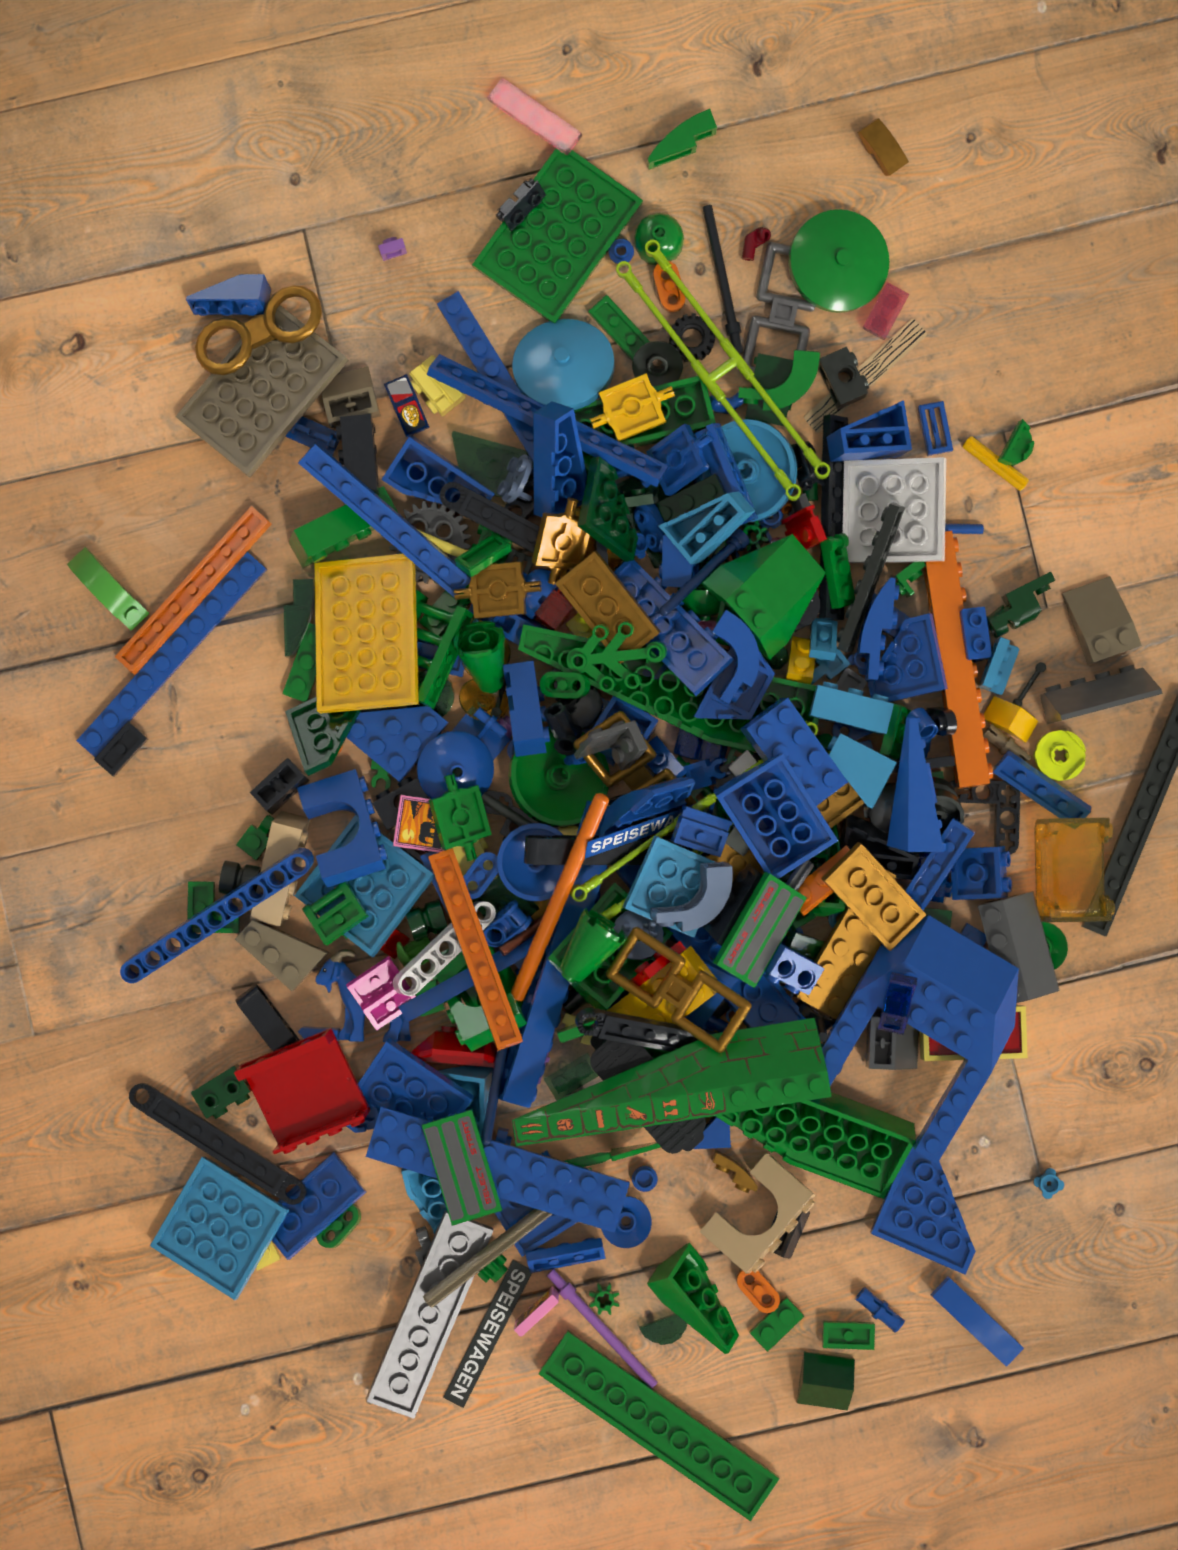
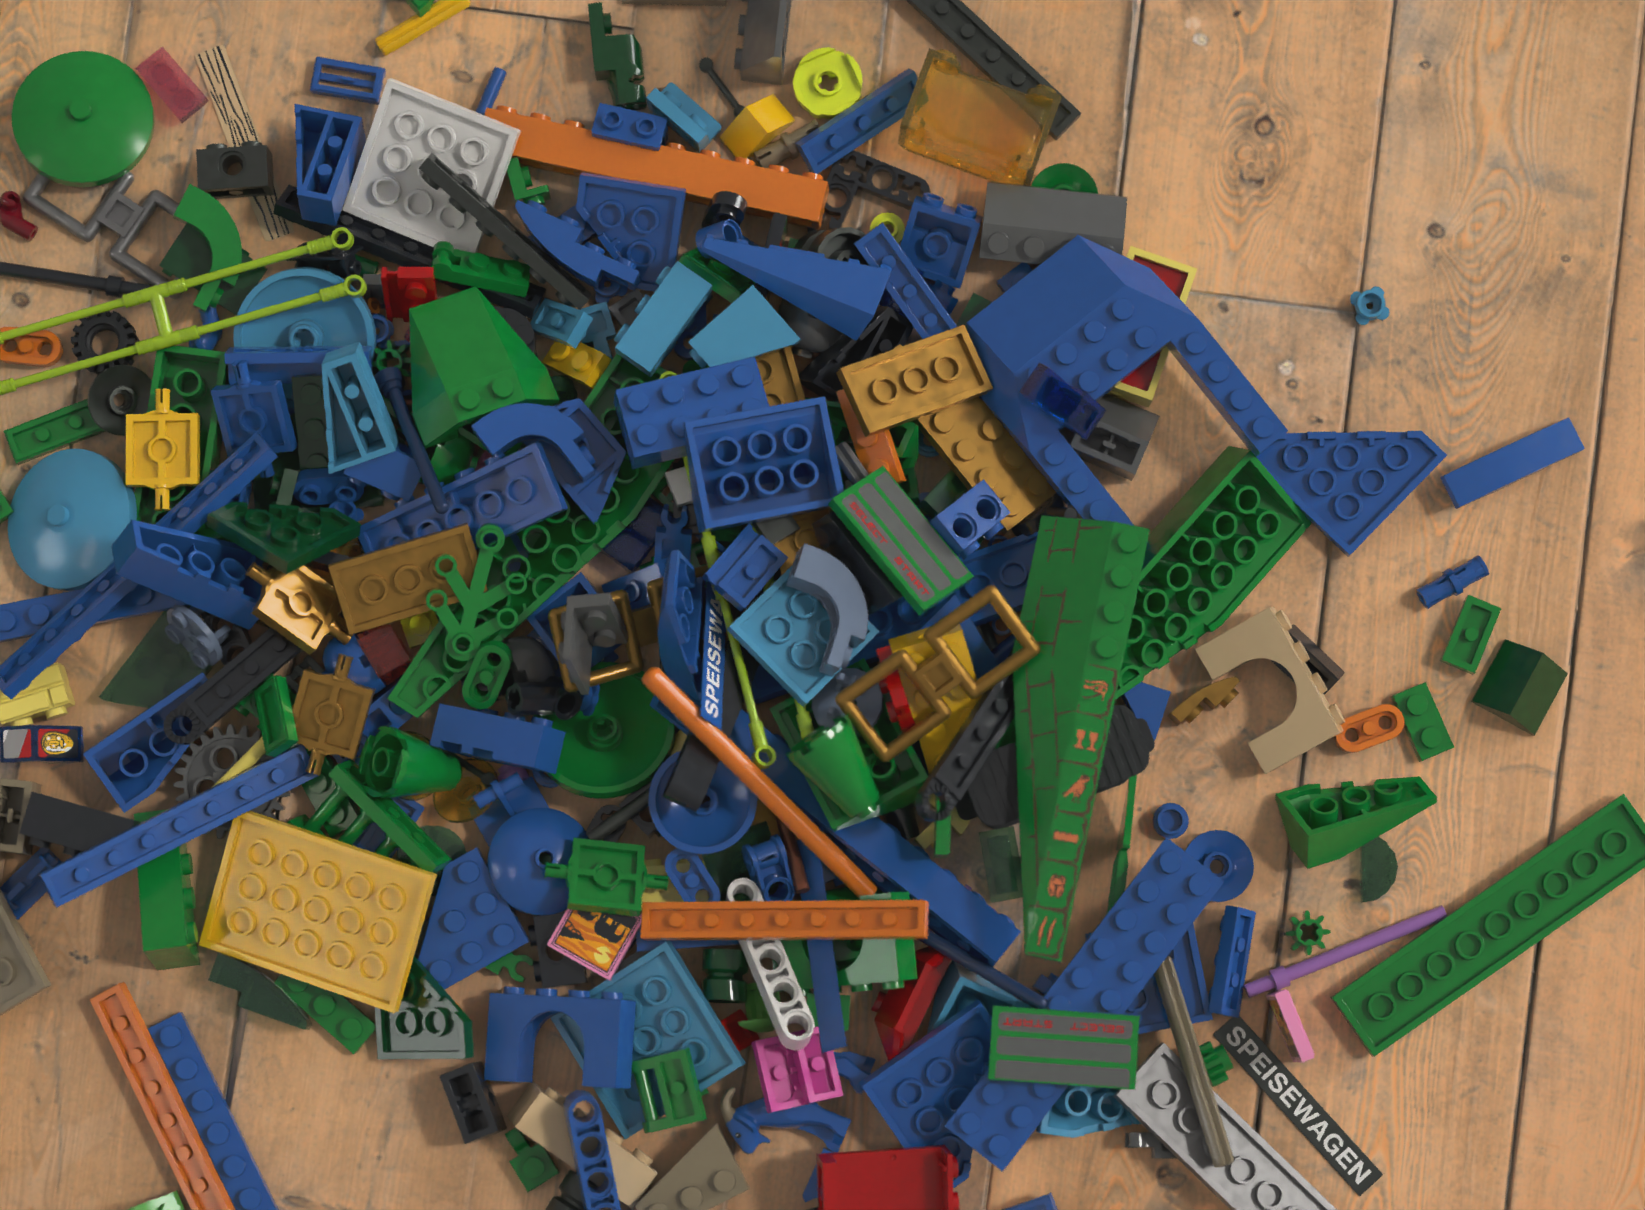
camera: 65 degrees left, 5 degrees down
(982, 835) = (892, 219): none -> neon yellow plate

